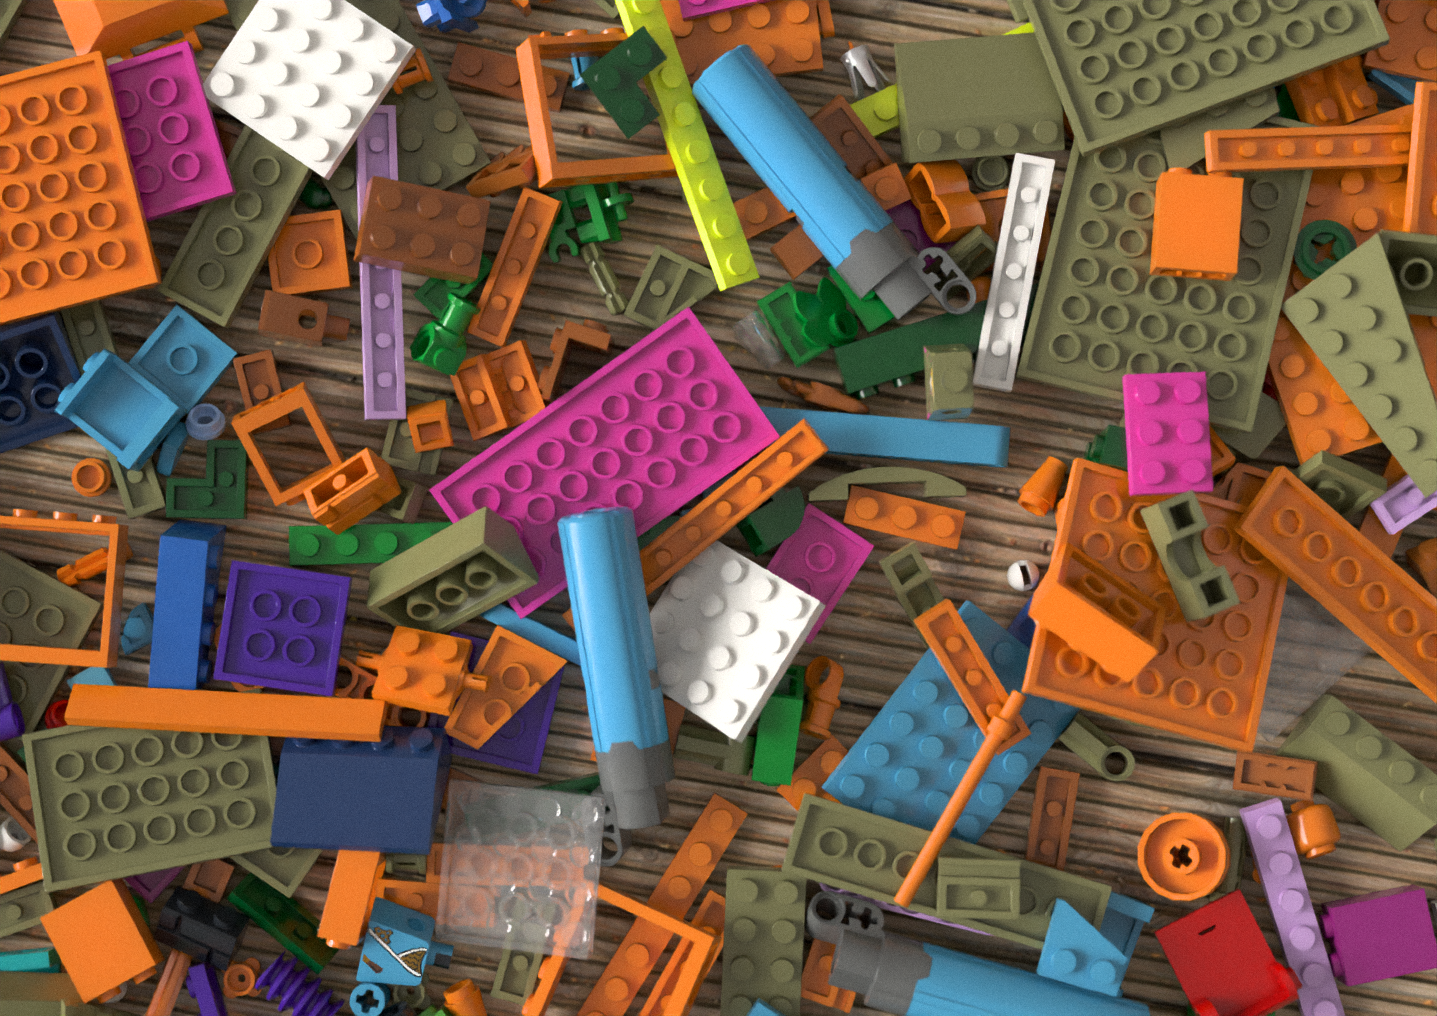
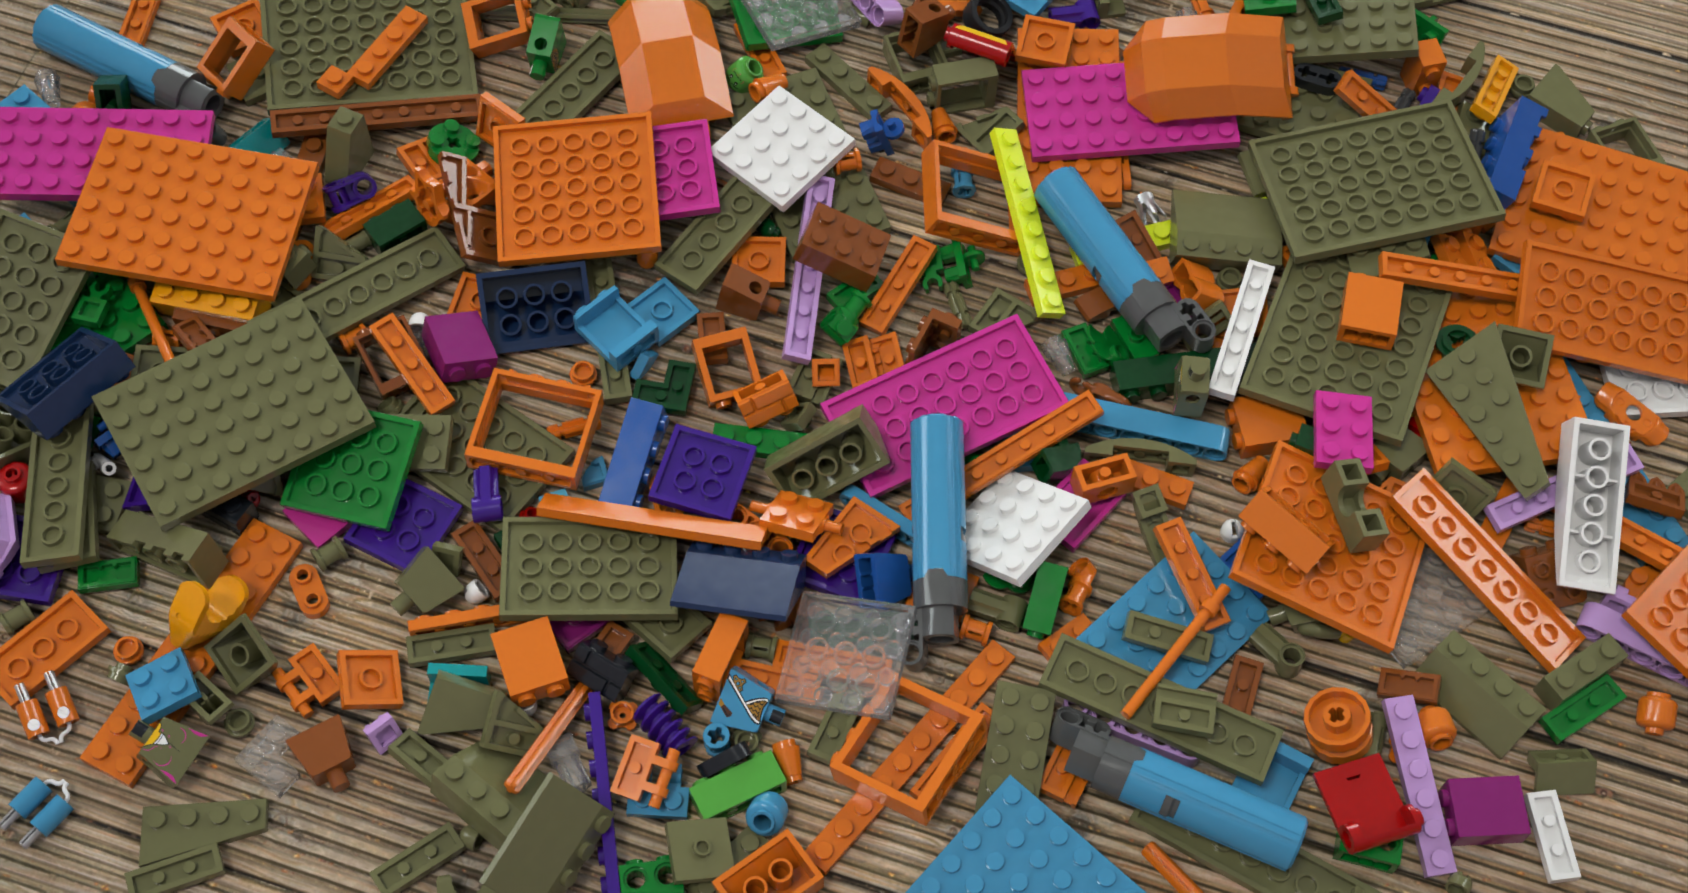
camera: 10 degrees right, 25 degrees down
(205, 422) = (669, 349): light blue plate -> none
(504, 172) = (912, 226): dark orange plate -> none
(554, 741) = (883, 576): none -> blue torso
(615, 79) = (986, 177): dark green plate -> none
(690, 784) = (975, 630): none -> orange bush
(838, 547) = (1104, 478): none -> orange brick
(943, 771) = (1162, 634): none -> olive plate
(1054, 416) = (1259, 425): none -> orange brick
(1079, 953) = (1257, 770): dark azure wing -> none

